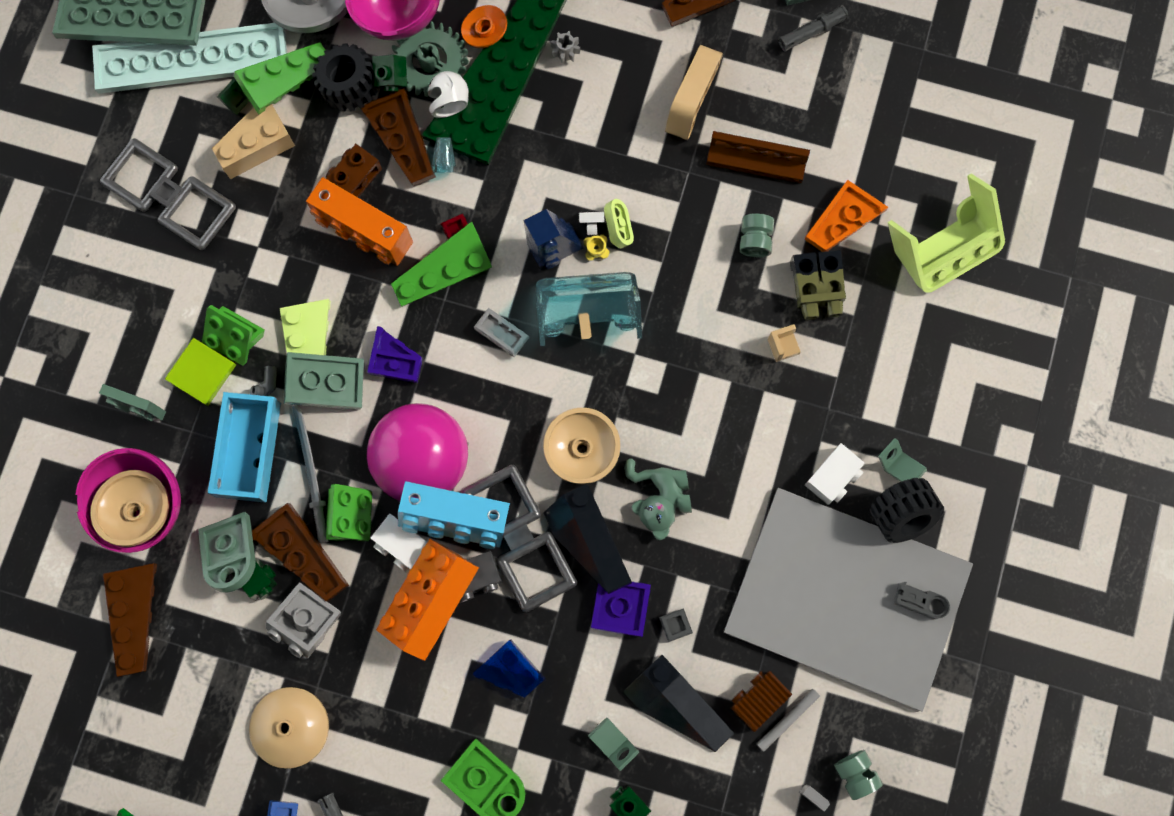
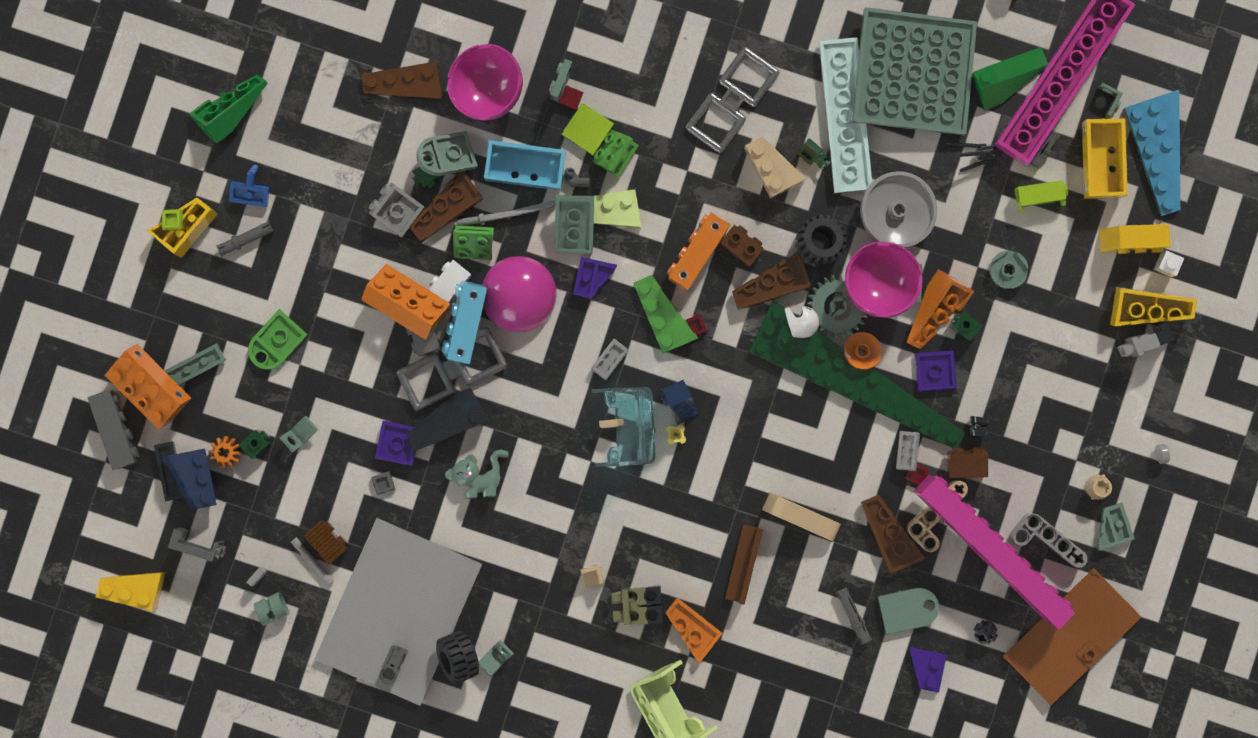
camera: 85 degrees right, 10 degrees up
(118, 501) = (482, 71): tan dish -> none
(159, 393) = (571, 97): none -> dark red tile
(275, 77) = (822, 189): bright green wing -> none
(306, 722) = (332, 206): tan dish -> none
(389, 72) = (822, 275): dark green brick -> none
(443, 156) = (752, 317): clear light blue cone -> none
(511, 670) = (354, 361): clear blue wing -> none
(567, 53) = (848, 412): light grey gear -> none
(579, 428) = (502, 416): tan dish -> none
(591, 219) = (698, 431): white tile -> none
(618, 223) = (693, 452): yellowish green plate -> none
(674, 702) = (329, 477): black wedge -> none
(757, 233) = (679, 559): sand green wheel -> none
(835, 474) = (489, 607): white brick -> none

